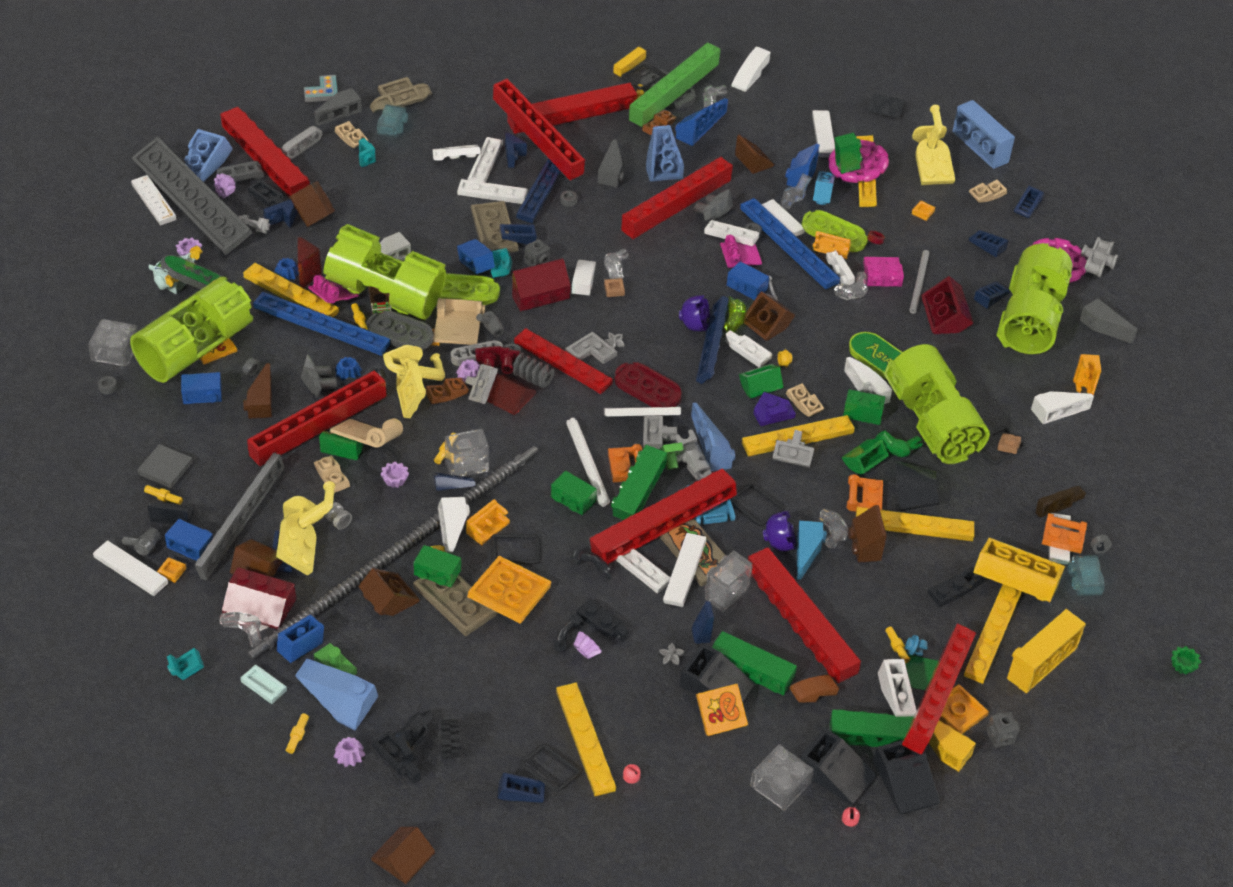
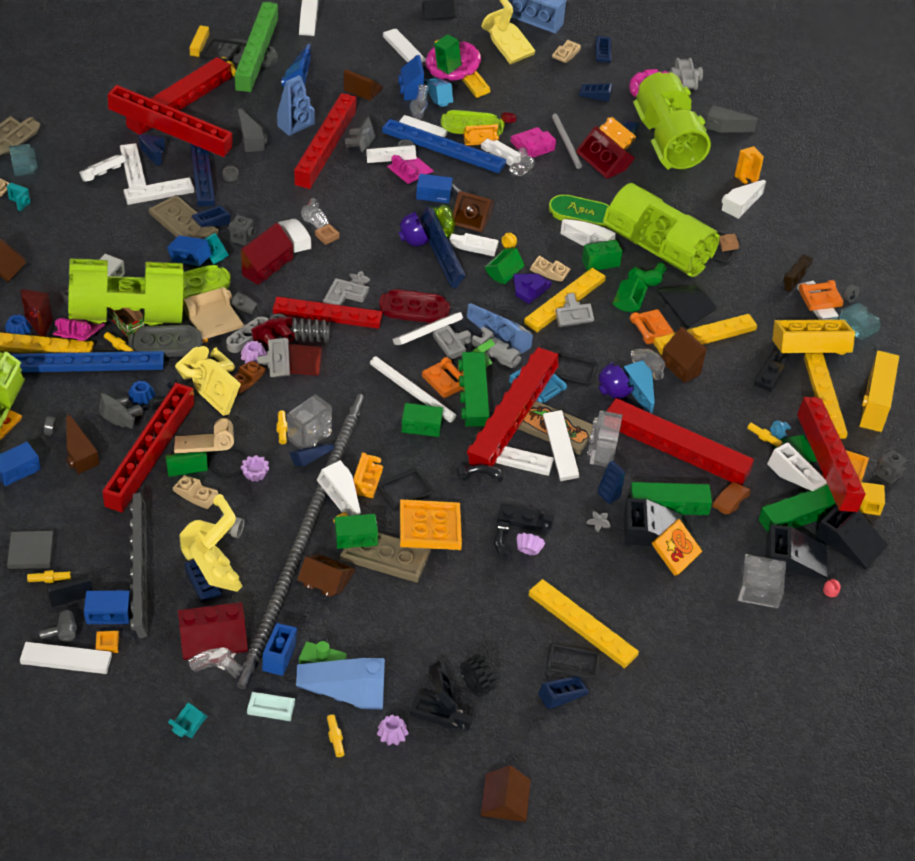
camera: 30 degrees left, 0 degrees up
(256, 558) = (184, 595): reddish brown slope -> none
(629, 773) = (641, 634): coral hinge -> none
(660, 119) = (263, 84): dark orange slope -> none
(710, 94) = (291, 47): clear arm -> none
(923, 210) = (528, 83): light orange tile -> none
(972, 292) = (618, 132): none -> light orange hinge

